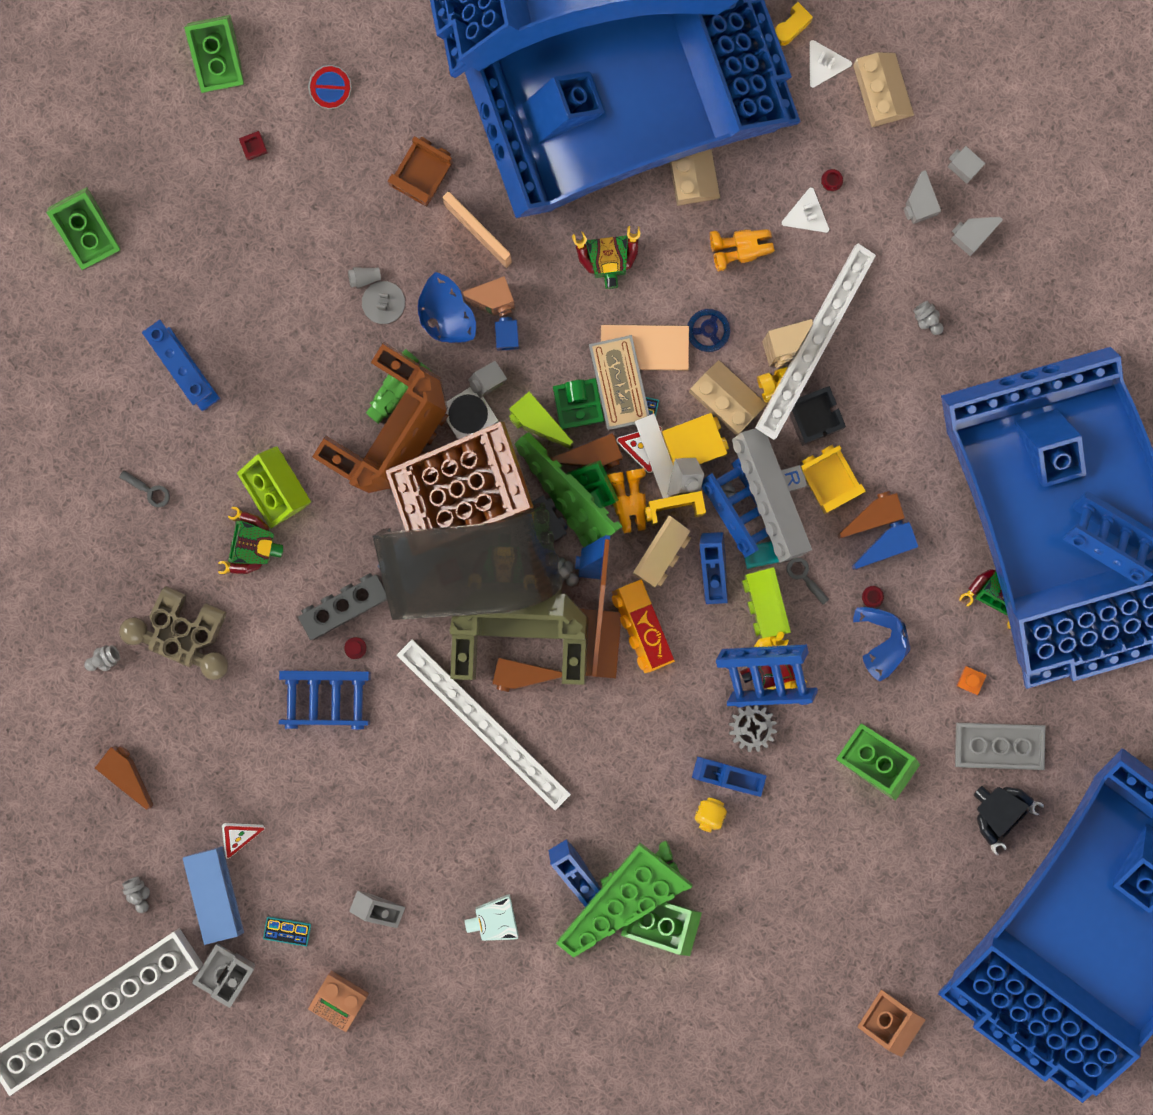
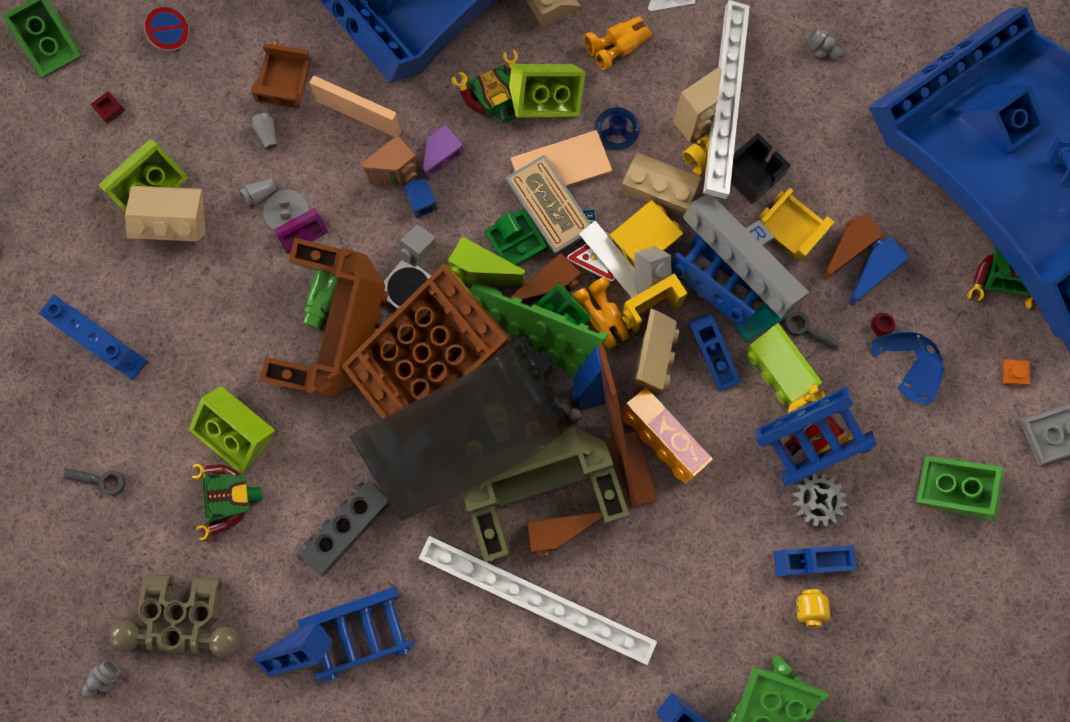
camera: 20 degrees left, 10 degrees down
(264, 230) = (143, 168): none -> lime slope
(269, 695) = (295, 651): none -> blue slope
(275, 271) = (165, 213): none -> tan slope
(355, 648) = (372, 567): dark red plate -> none
(389, 219) = (265, 129): none -> light grey cone
(390, 326) = (306, 227): none -> magenta slope
(447, 311) = (350, 193): blue piece -> none
(540, 296) = (440, 151): none -> medium lavender slope
(655, 274) = (546, 90): none -> lime slope

